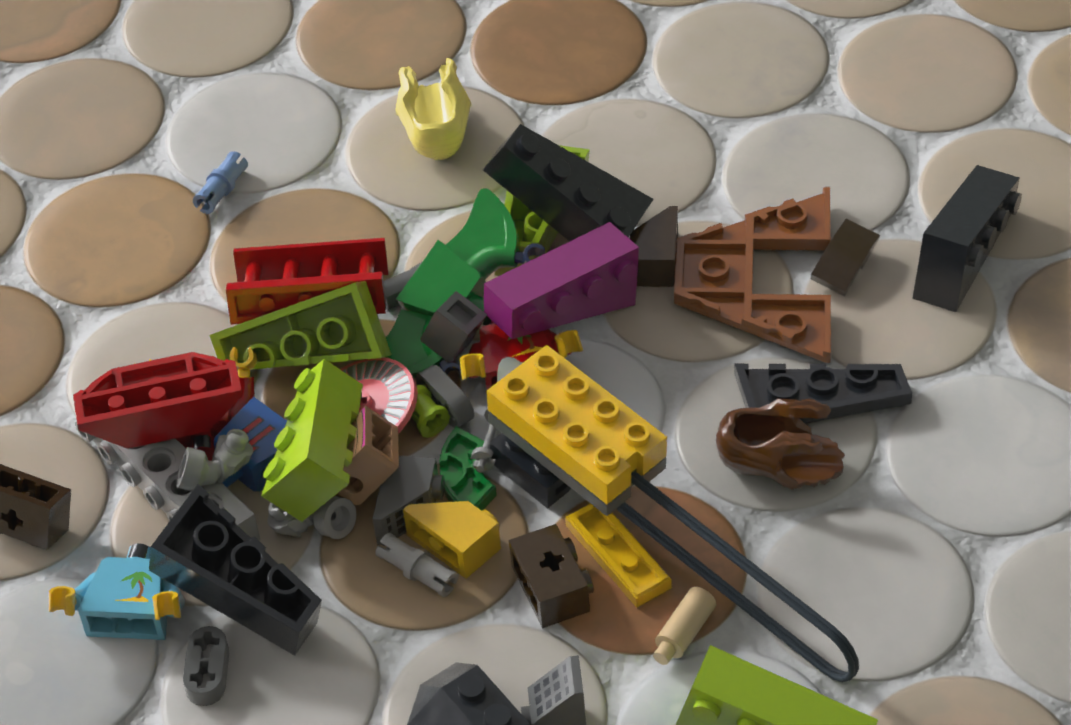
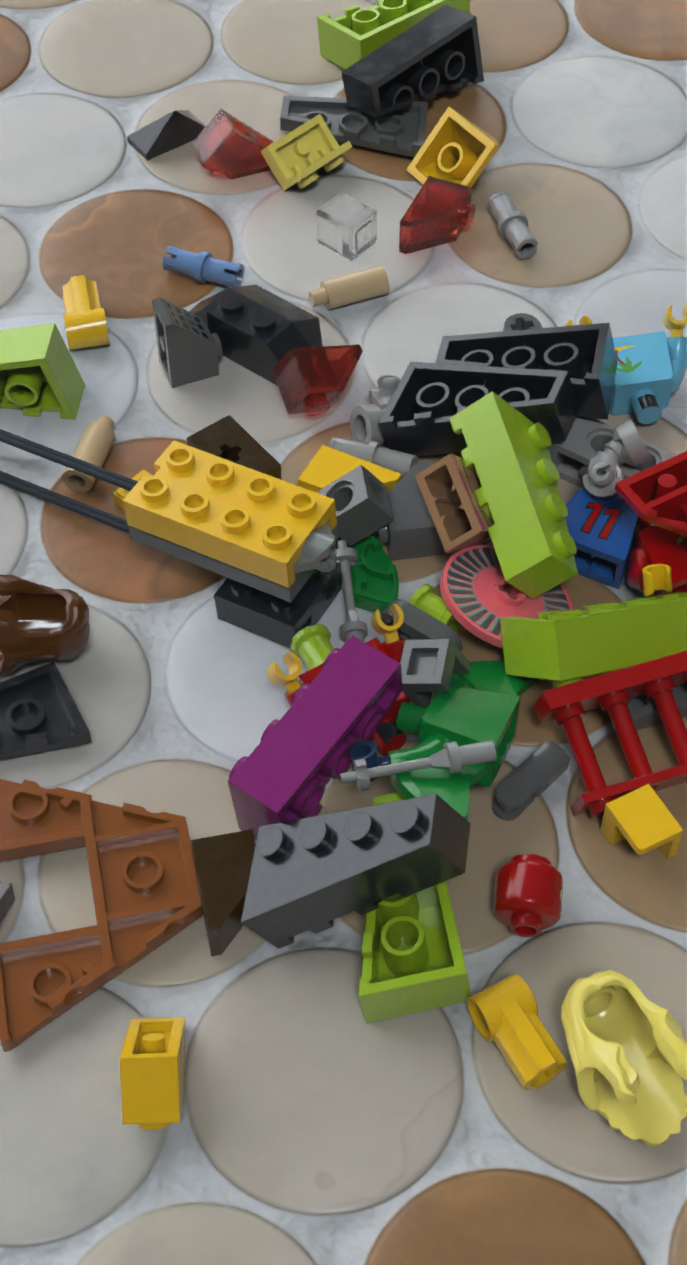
camera: 160 degrees right, 5 degrees up
(325, 556) = (434, 392): none -> black wedge
(349, 222) = (643, 822): none -> yellow panel
(376, 618) = (365, 418): none -> light grey arm
(432, 646) = (315, 376): none -> clear red slope
(449, 206) = (528, 895): none -> red head
(457, 476) = (360, 504): none -> dark grey brick
(472, 233) = (450, 758): none -> light grey piece
(489, 136) = (509, 1017): none -> yellow piece
(731, 163) = (153, 1072): none -> yellow slope

